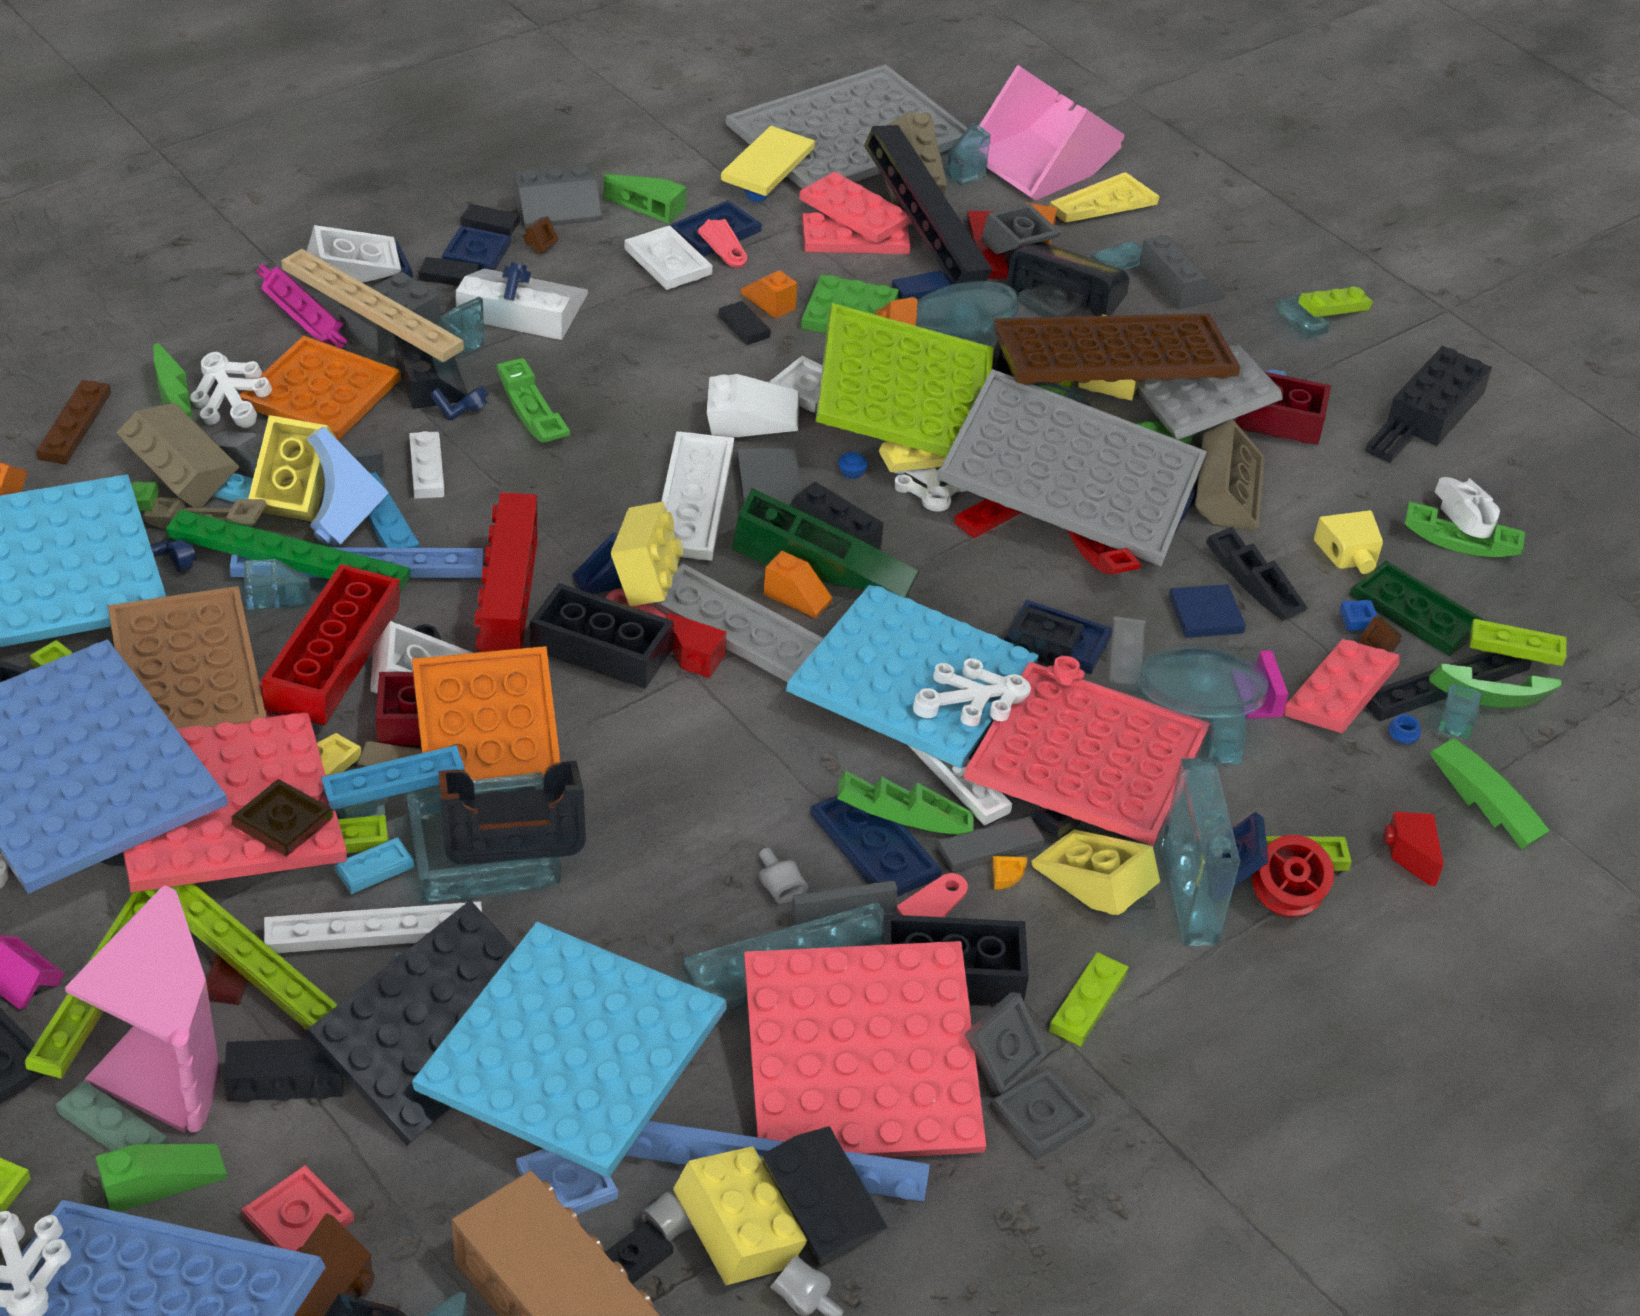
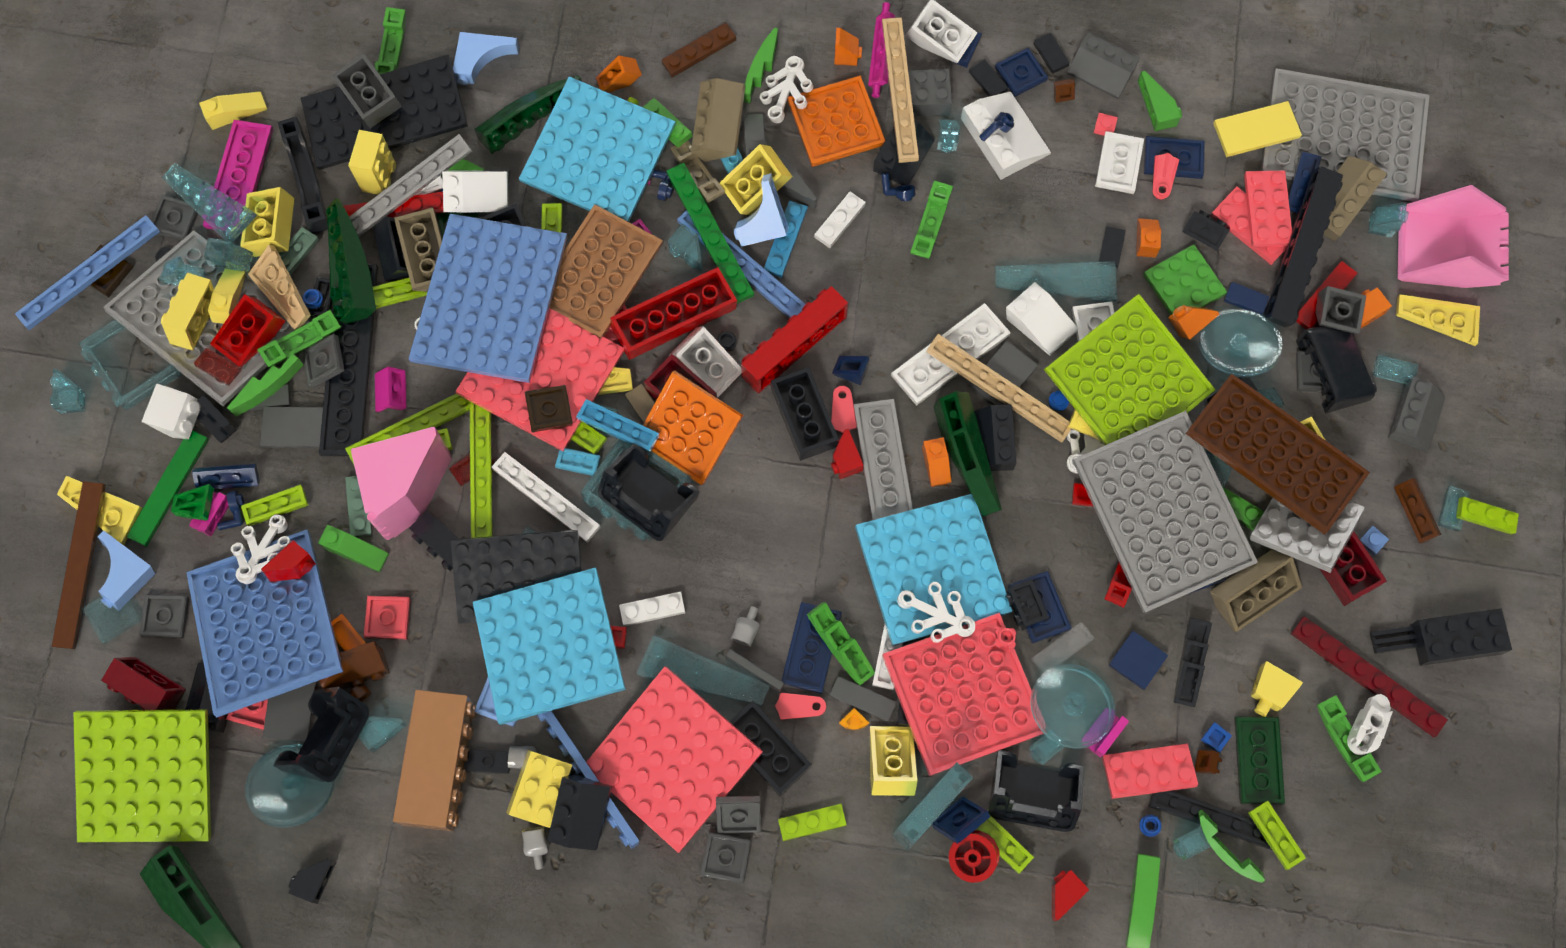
camera: 50 degrees right, 30 degrees up
(89, 1232) = (289, 564): none -> red slope
(259, 322) = (846, 48): none -> orange slope
(613, 240) = (1105, 123): none -> coral plate
(646, 553) = (870, 383): light yellow brick -> none
(653, 932) = (652, 609): none -> white plate
(752, 356) = (1083, 279): none -> clear light blue wing
(780, 481) = (999, 387): none -> tan plate
(818, 256) = (1206, 230): none -> black bracket
(859, 167) = (1306, 164): none -> dark blue plate
(1277, 335) = (1417, 510): none -> reddish brown plate
(1290, 781) = (1036, 794): none -> black windscreen
(1405, 479) = (1369, 676): none -> dark red plate

